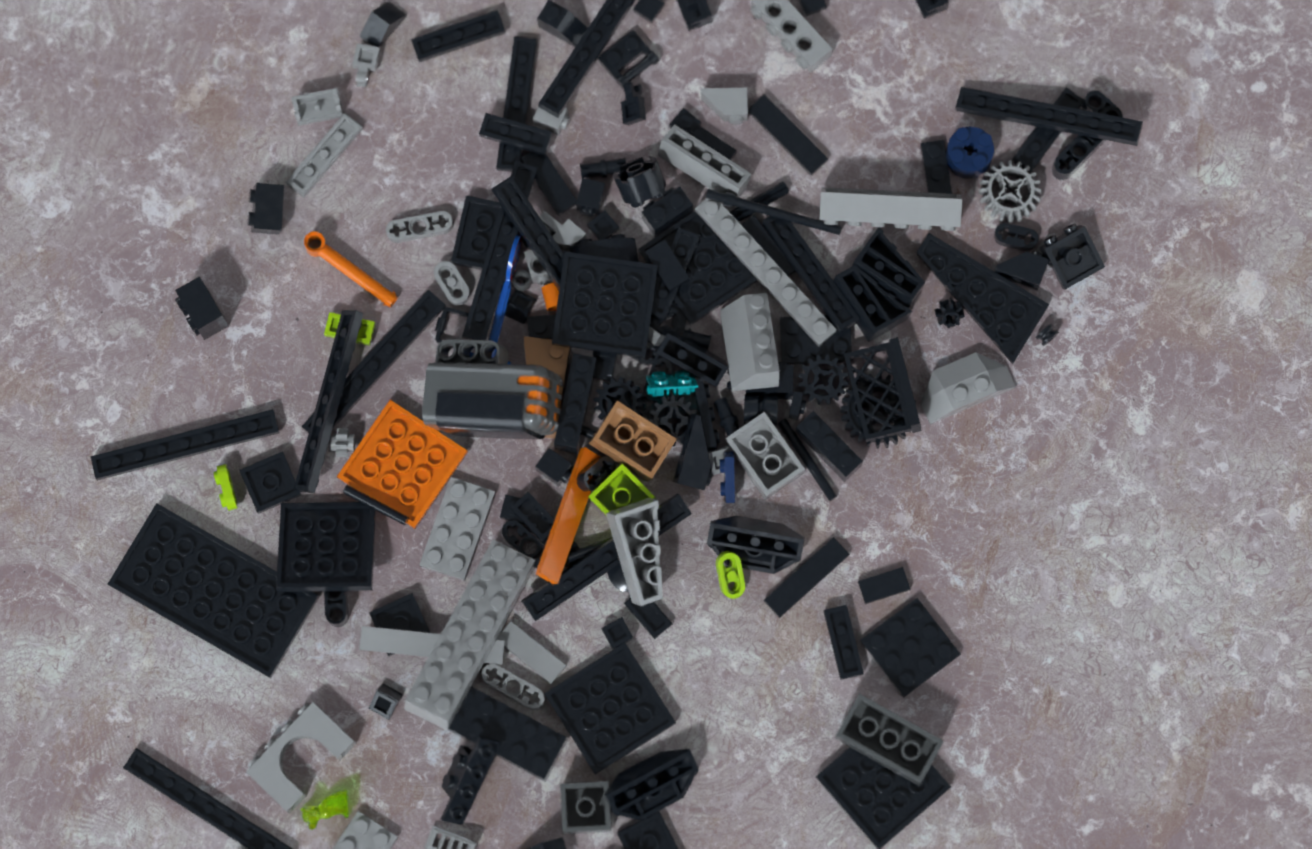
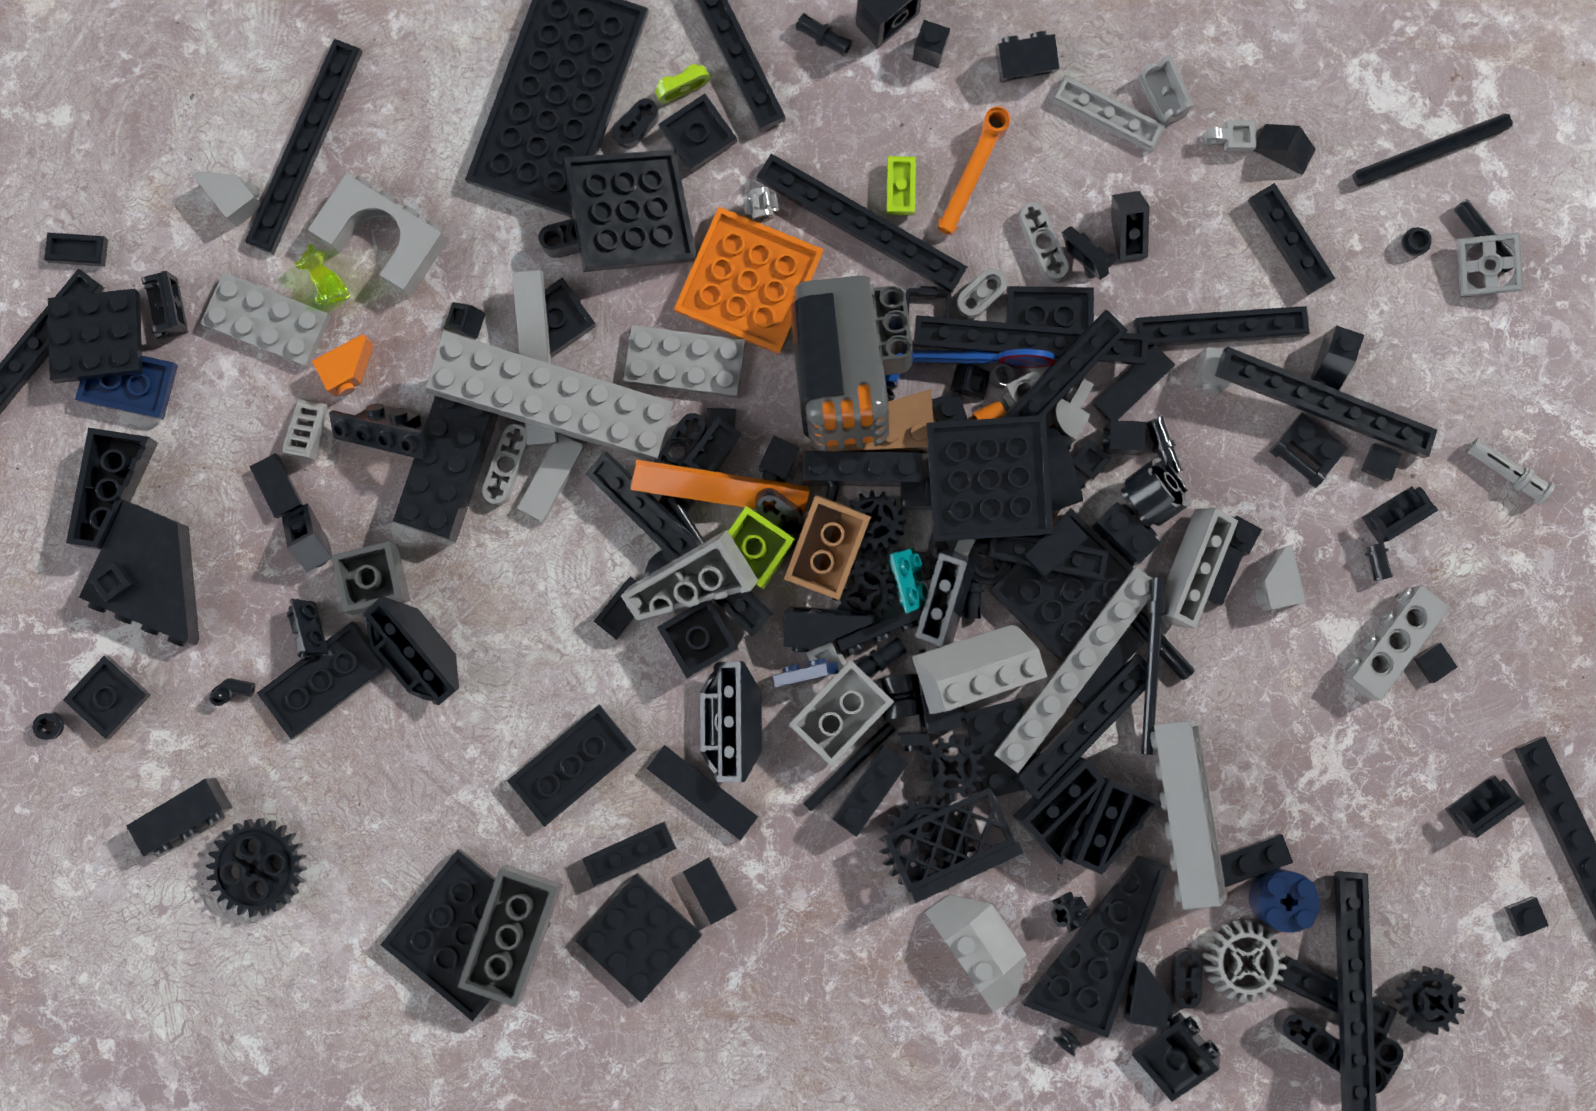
camera: 75 degrees right, 5 degrees up
(209, 366) = (823, 34): none -> black pin
(238, 281) = (931, 43): none -> black brick
(246, 535) = (632, 119): none -> black beam
(328, 401) = (805, 175): black plate -> none
(376, 505) = (691, 258): black bar -> none
(406, 804) = (344, 366): none -> orange slope
(421, 156) = (1130, 225): none -> black slope
(444, 191) = (1091, 257): none -> black plate
(515, 134) = (1183, 330): black plate -> none
(610, 708) = (498, 584): black plate -> none
(617, 633) = (591, 575): black plate -> none
(634, 106) = (1250, 467): black plate -> none
(685, 556) = (698, 638): none -> black brick
(726, 25) = (1379, 561): none -> black pin
(730, 573) = (688, 698): lime plate -> none
(766, 675) = (572, 765): none -> black plate
(787, 135) = (1255, 665): black tile -> none
(1056, 53) = (1442, 993): none -> black gear

